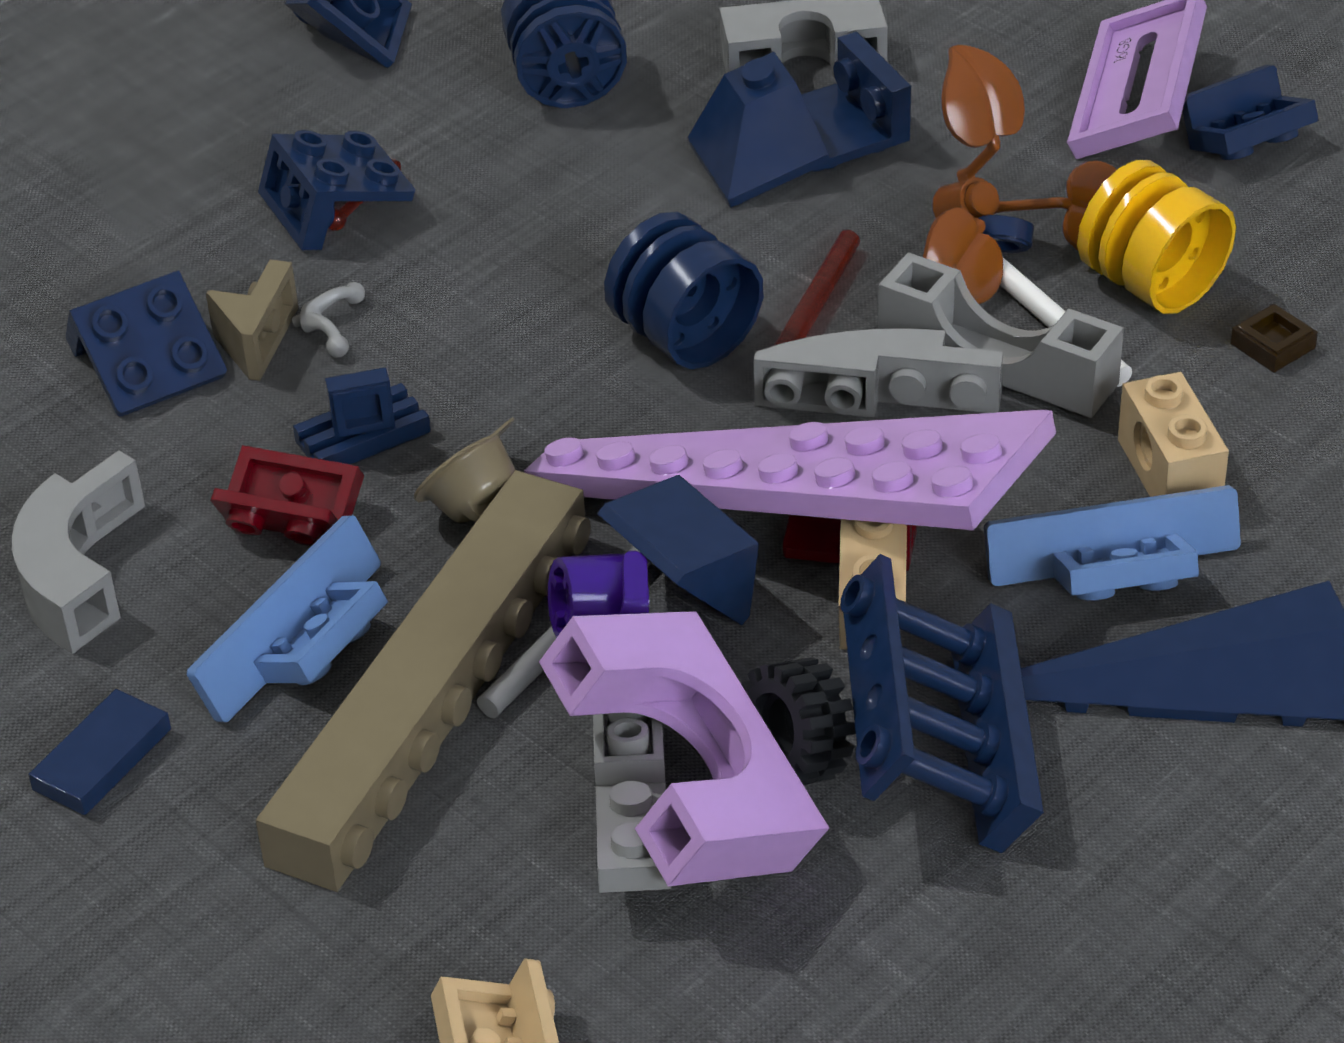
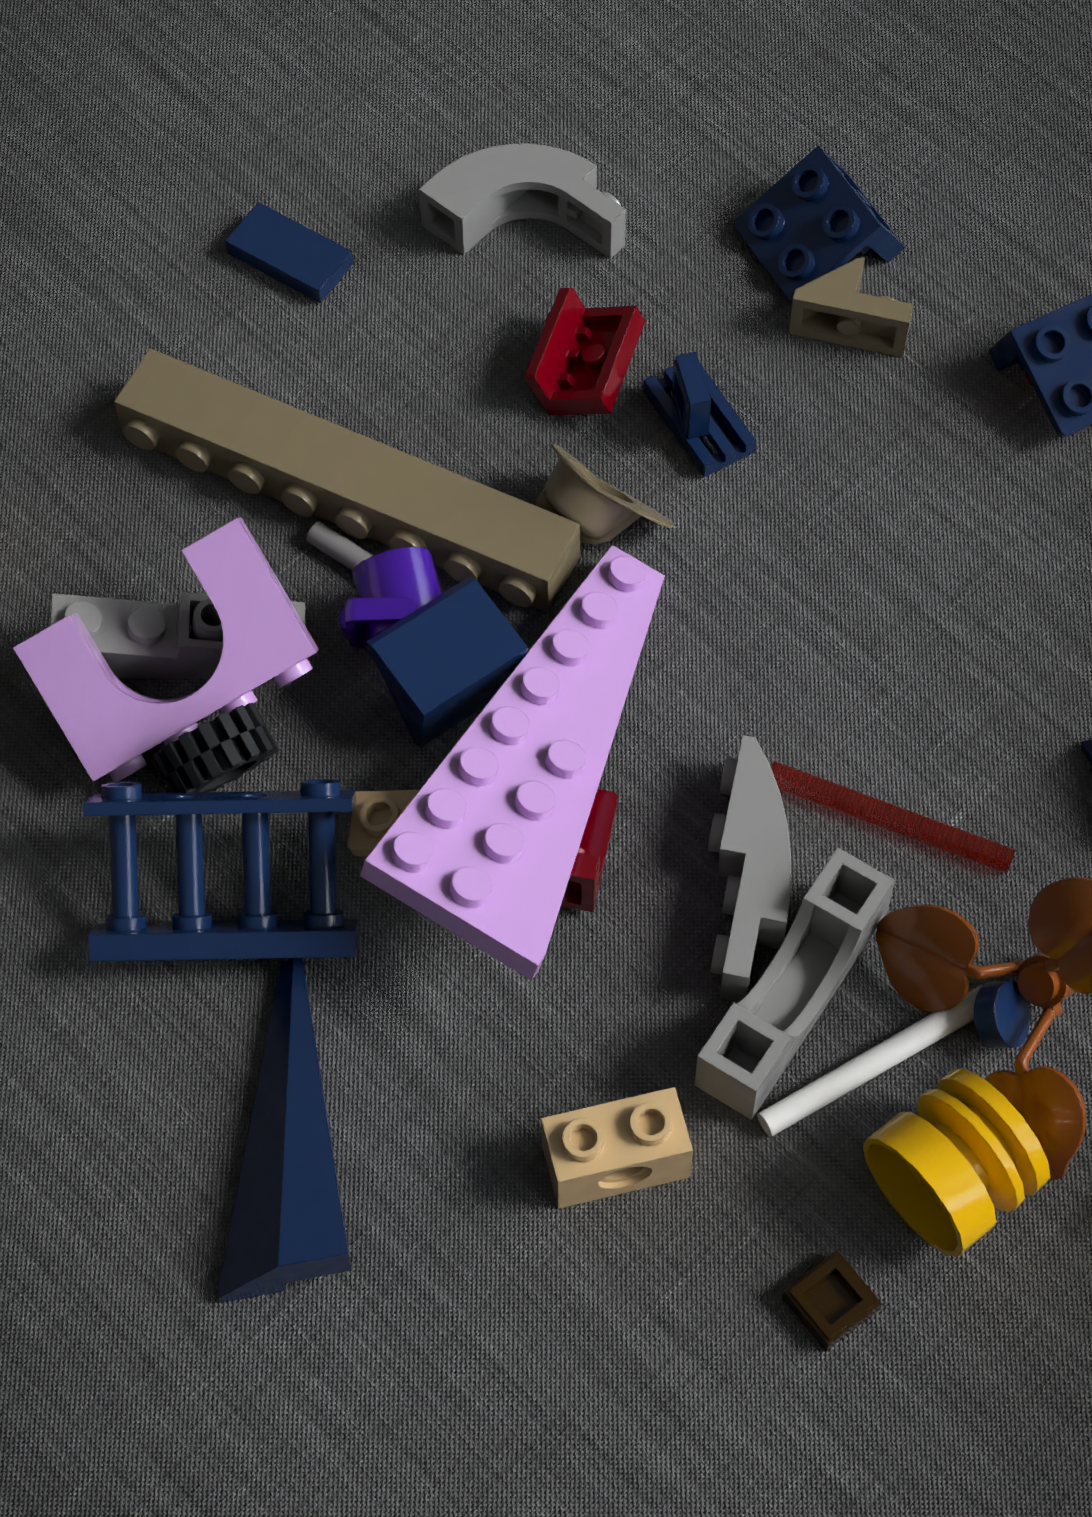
camera: 90 degrees right, 20 degrees up
(295, 623) = (418, 376): medium blue bracket -> none
(312, 319) = (872, 363): light grey piece -> none
(683, 290) = (858, 670): dark blue wheel -> none
(1115, 543) = (461, 1082): medium blue bracket -> none

